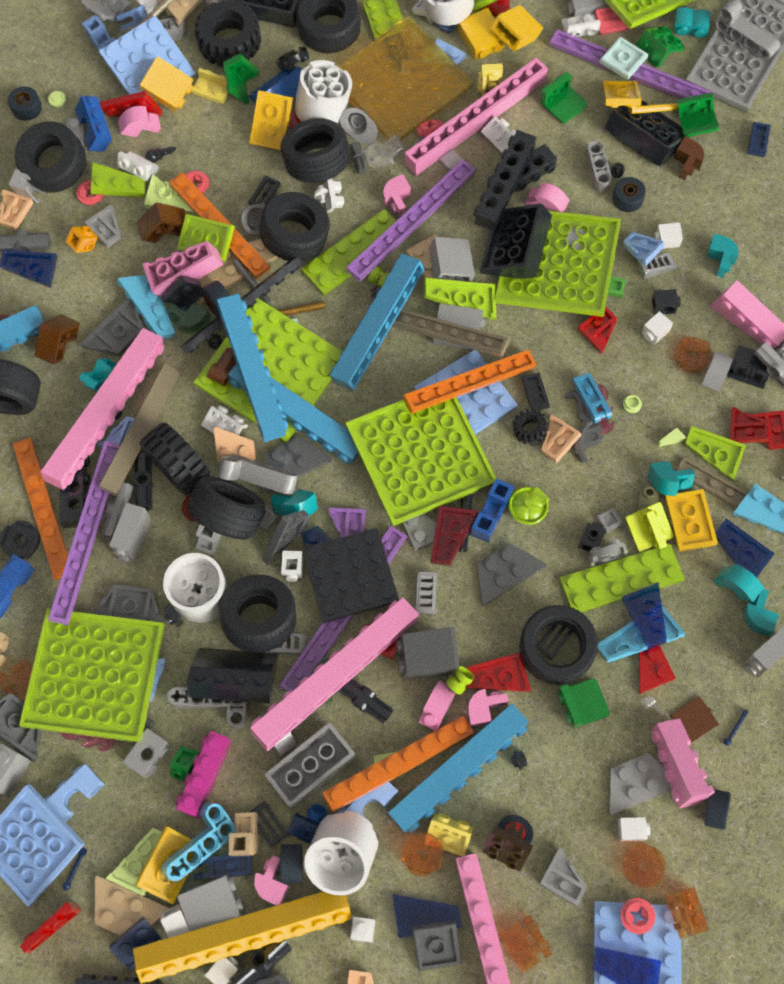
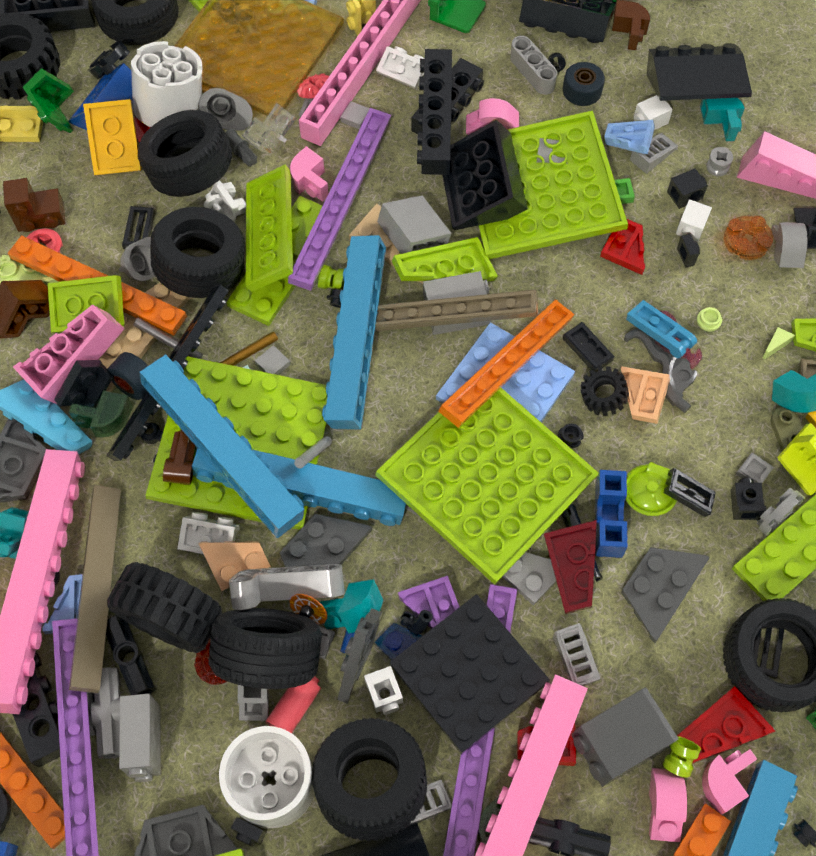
camera: 25 degrees left, 5 degrees down
(197, 154) = (32, 209): none -> reddish brown brick
(232, 552) = (293, 705): none -> coral brick
(266, 495) = (308, 607): none -> piece
(312, 394) = (312, 452): none -> light grey bar
(315, 322) = (272, 361): none -> light grey tile
(332, 530) = (414, 622): none -> black arm
(350, 226) = (268, 228): none -> lime plate
(493, 444) = (575, 431): none -> black plate
(562, 530) = (689, 496): none -> black tile
(642, 348) = (688, 250): none -> black plate
(697, 294) = (719, 161): none -> light grey wheel
(717, 216) = (698, 72): none -> black slope

